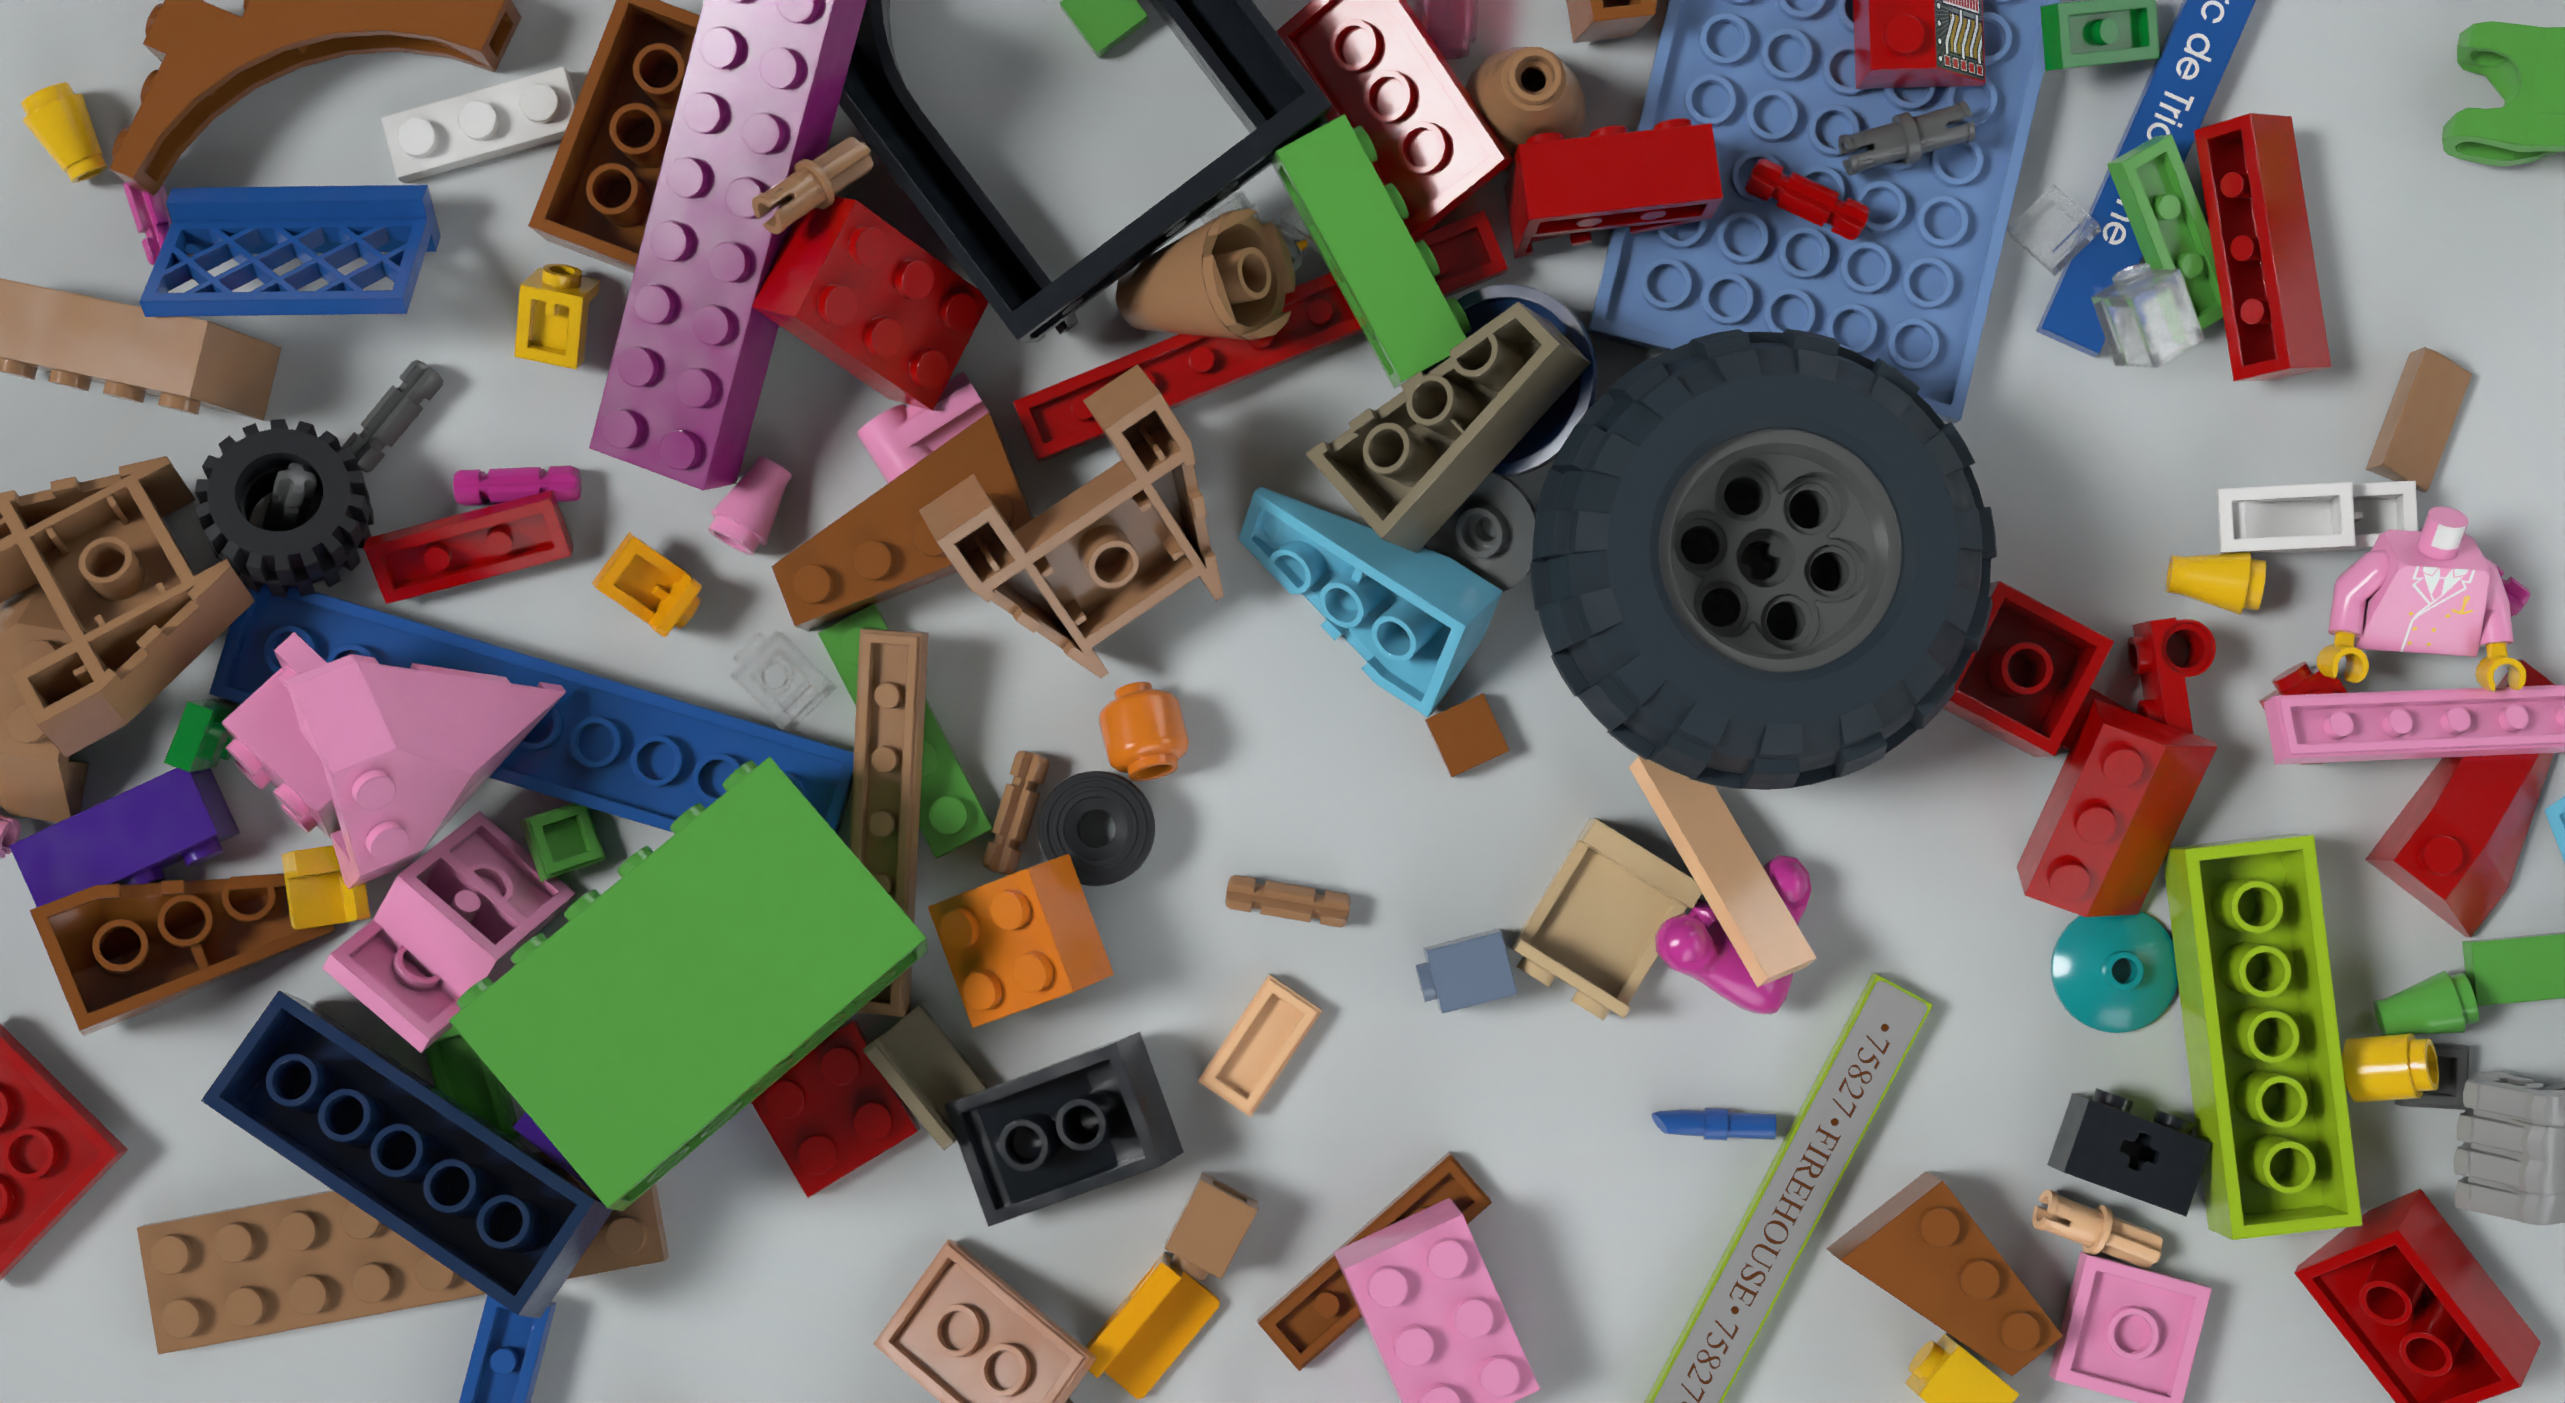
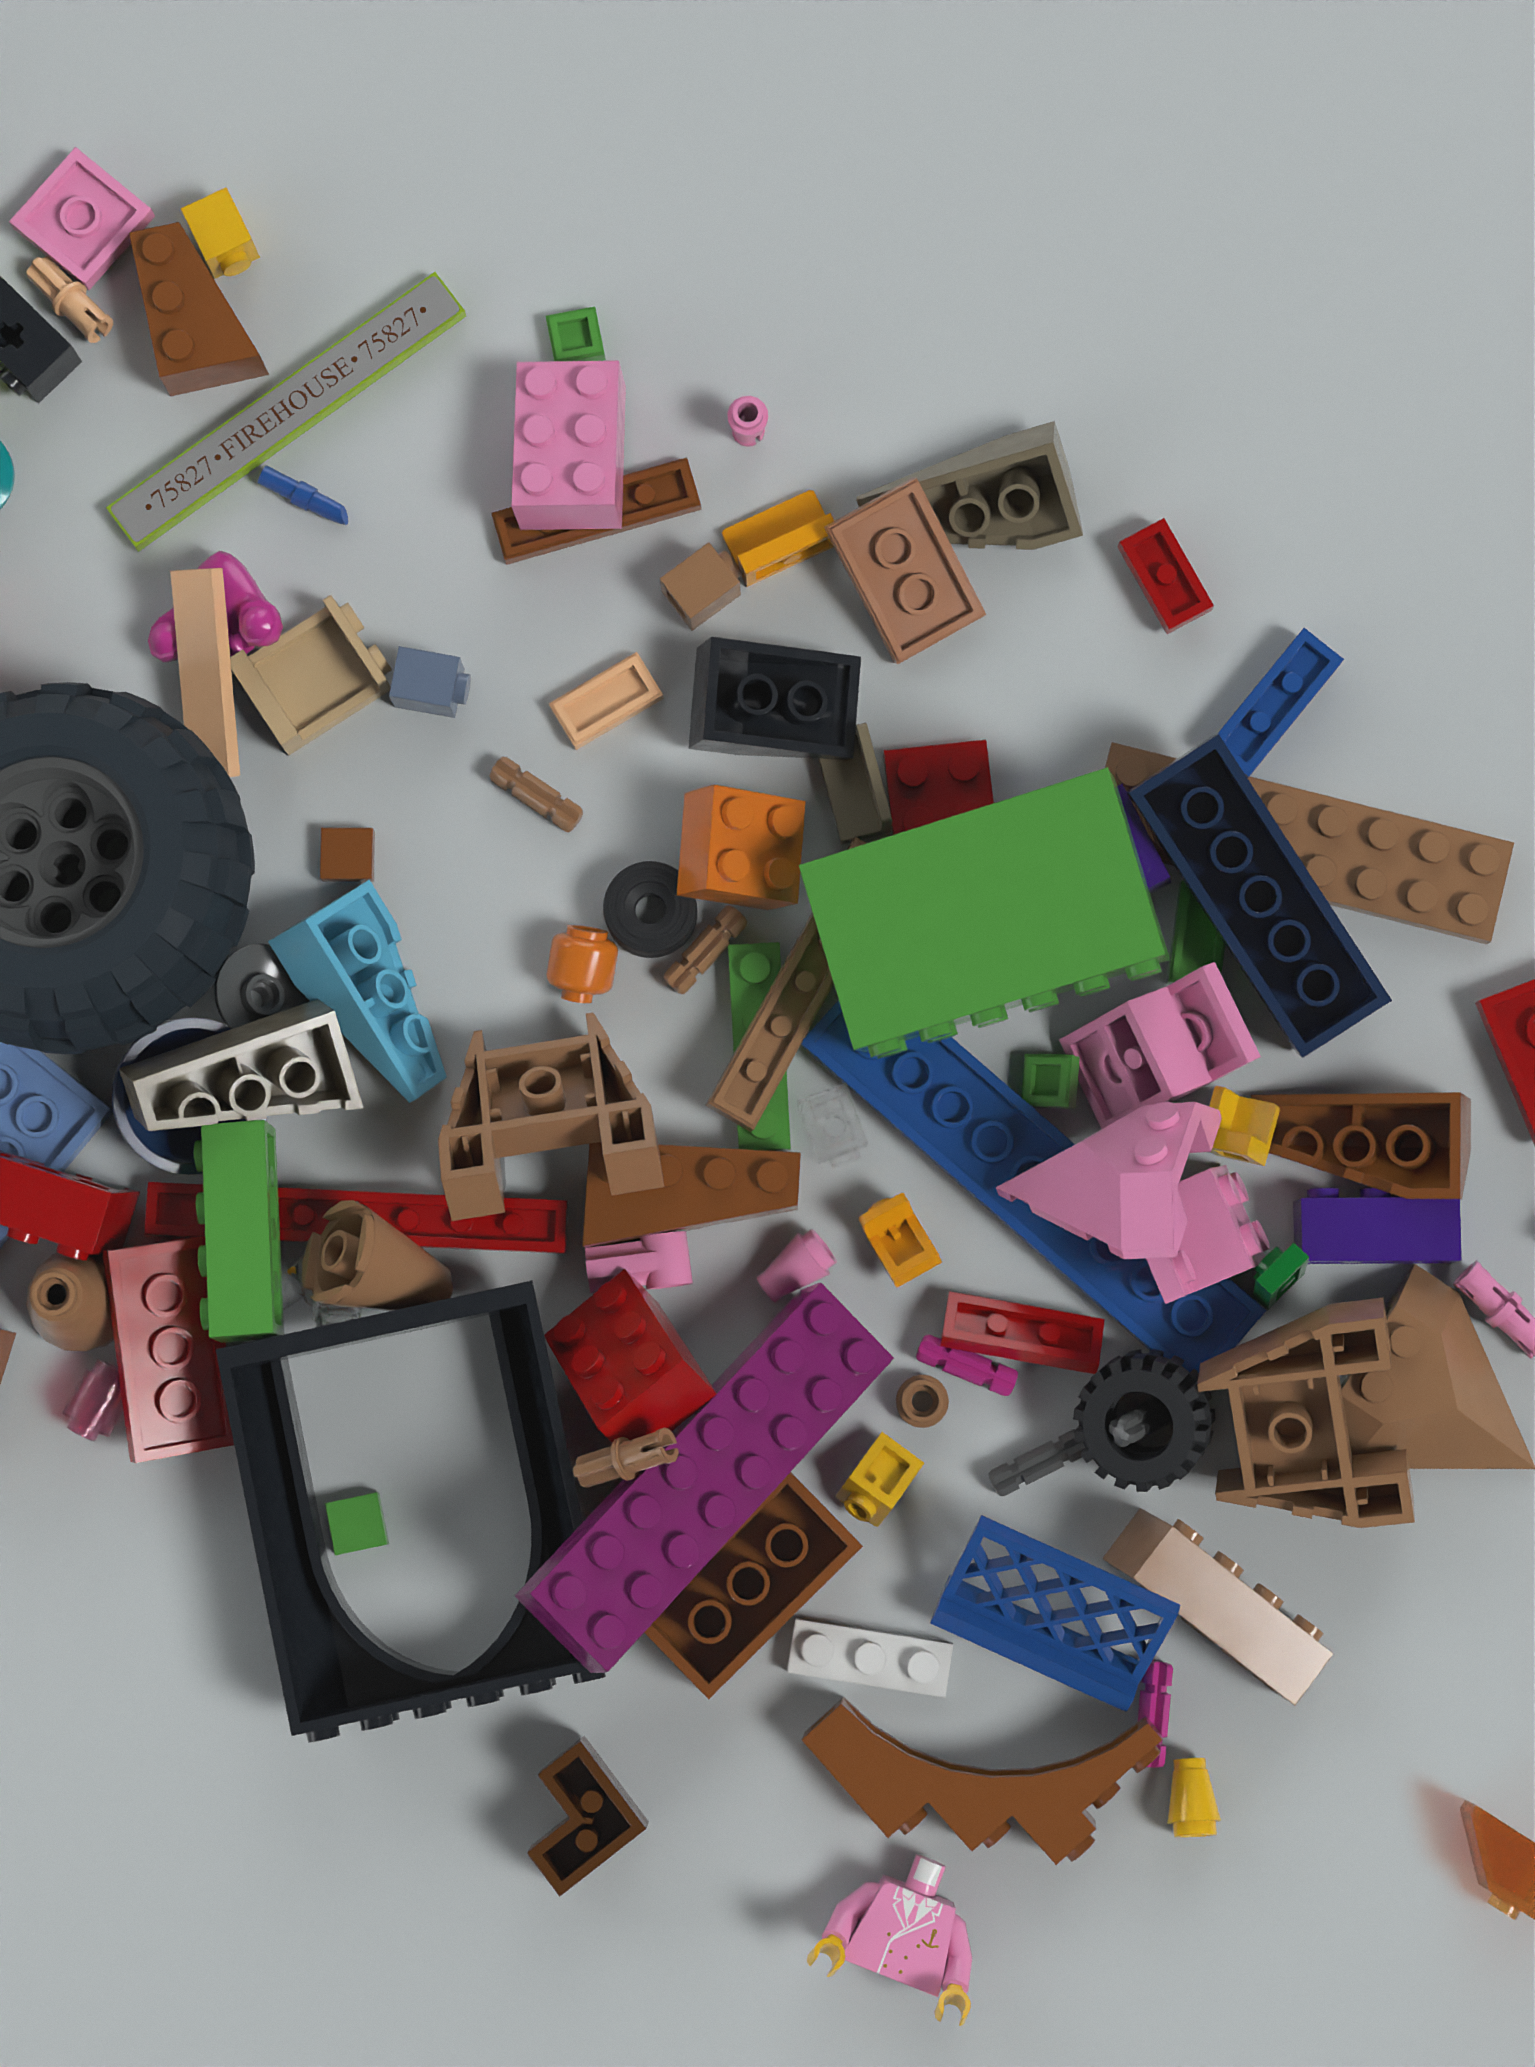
camera: 150 degrees left, 5 degrees down
(533, 413) = (934, 1389): none -> medium nougat plate

